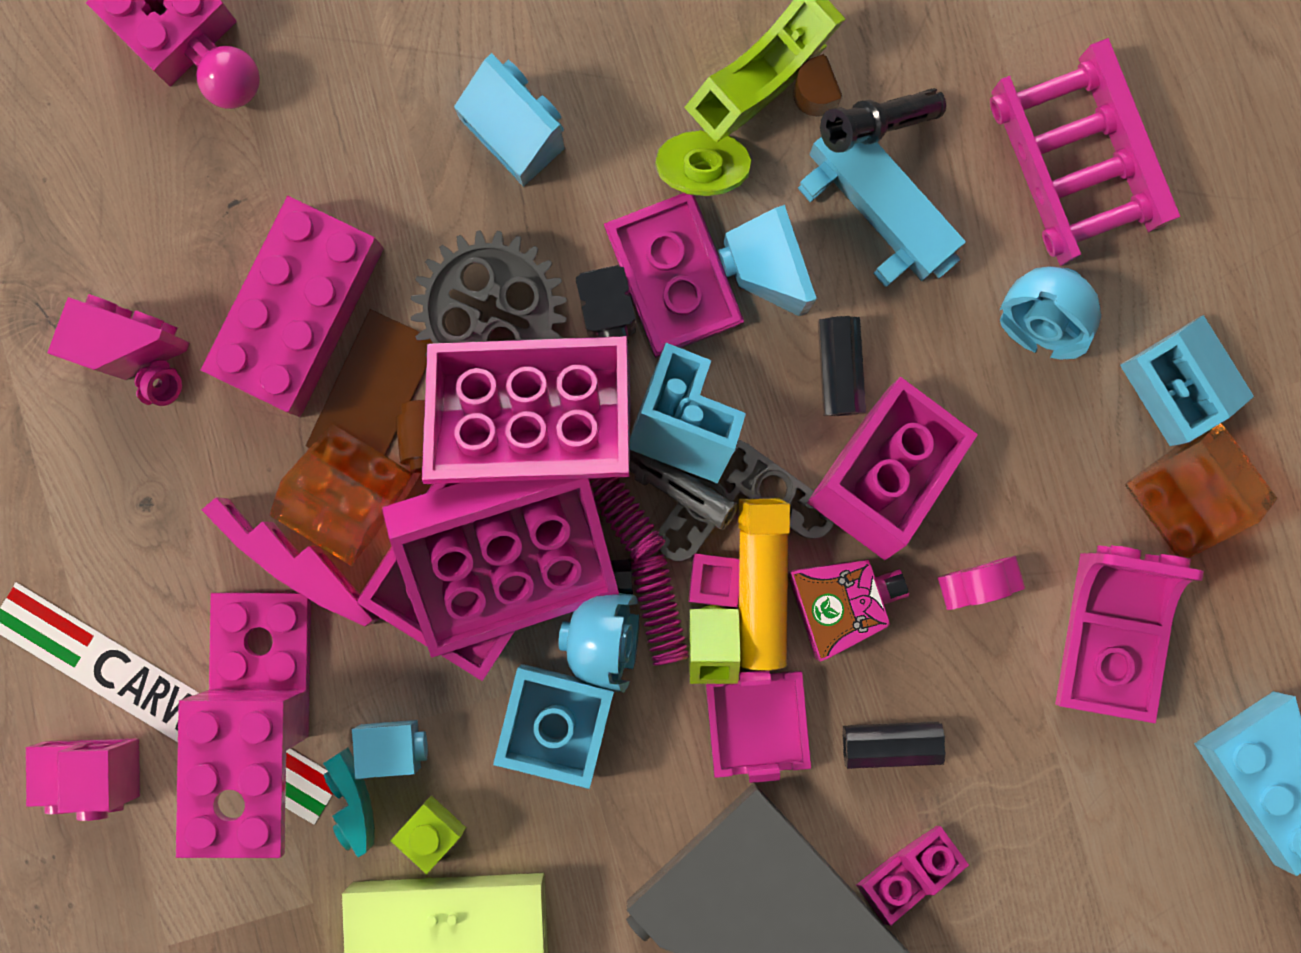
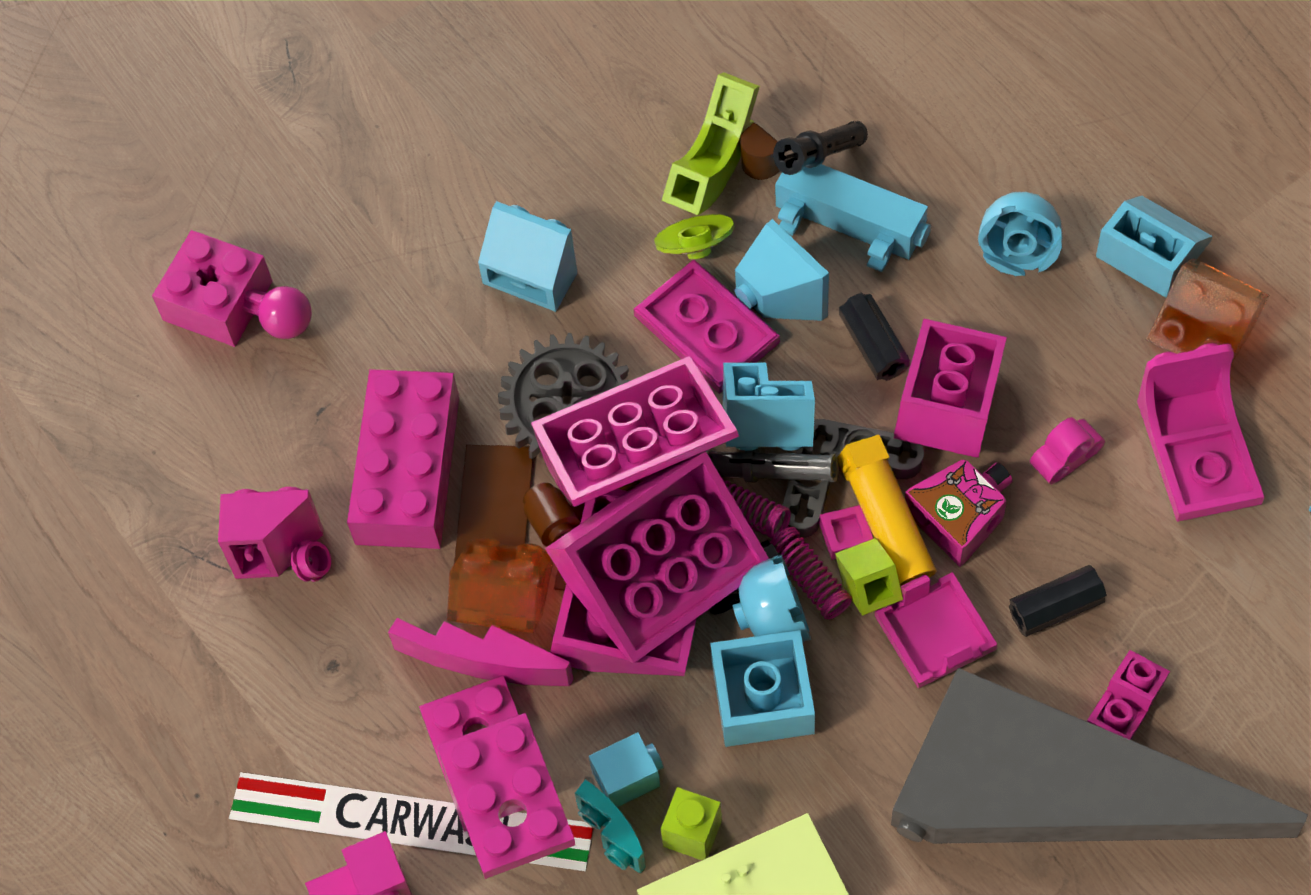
camera: 15 degrees left, 25 degrees down
(606, 302) = (658, 341): black brick -> none
(1114, 116) = (1001, 88): dark pink fence -> none

